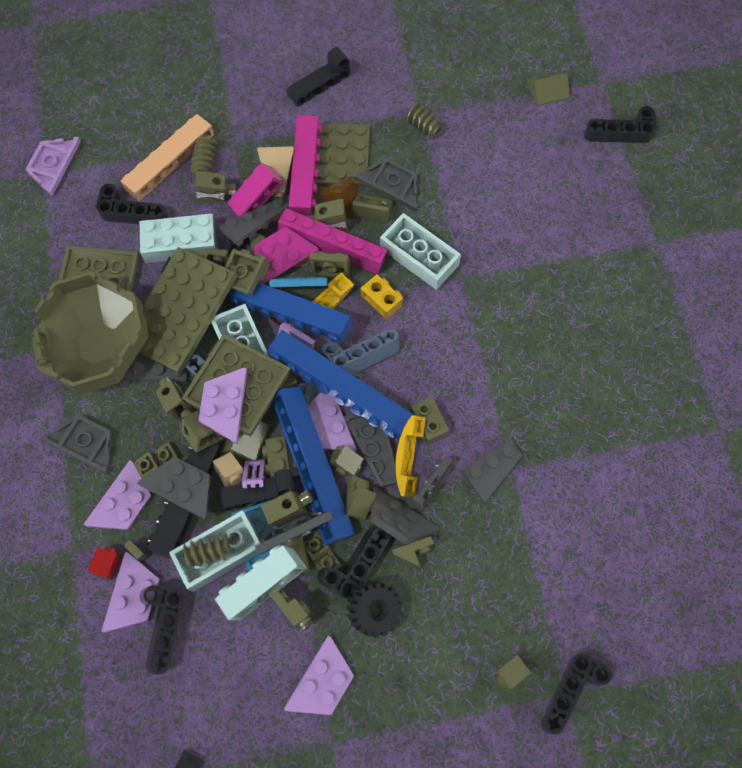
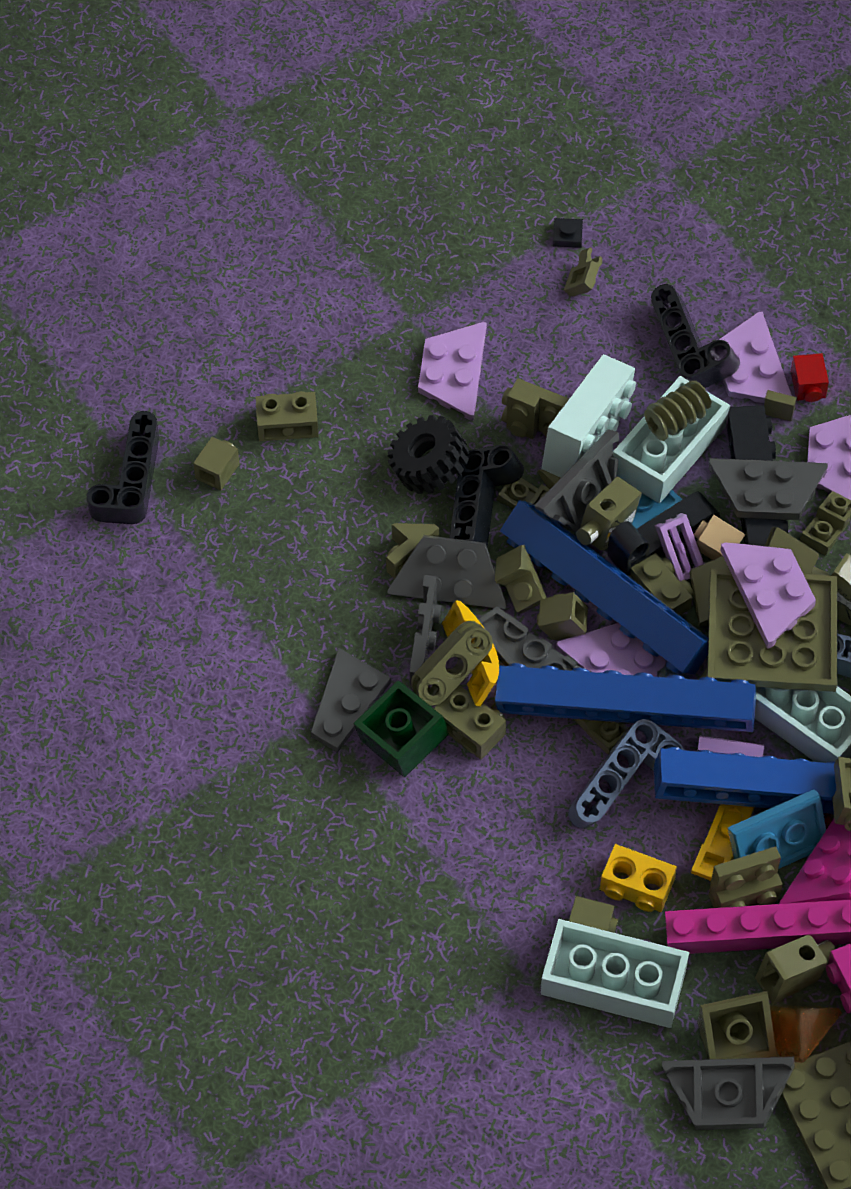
camera: 155 degrees right, 10 degrees down
(198, 718) = (583, 276): none -> olive plate
(417, 284) = (593, 914): none -> olive brick
(427, 447) = (457, 645): none -> olive piece
(451, 690) = (287, 416): none -> olive brick
(472, 428) = (401, 728): none -> dark green brick

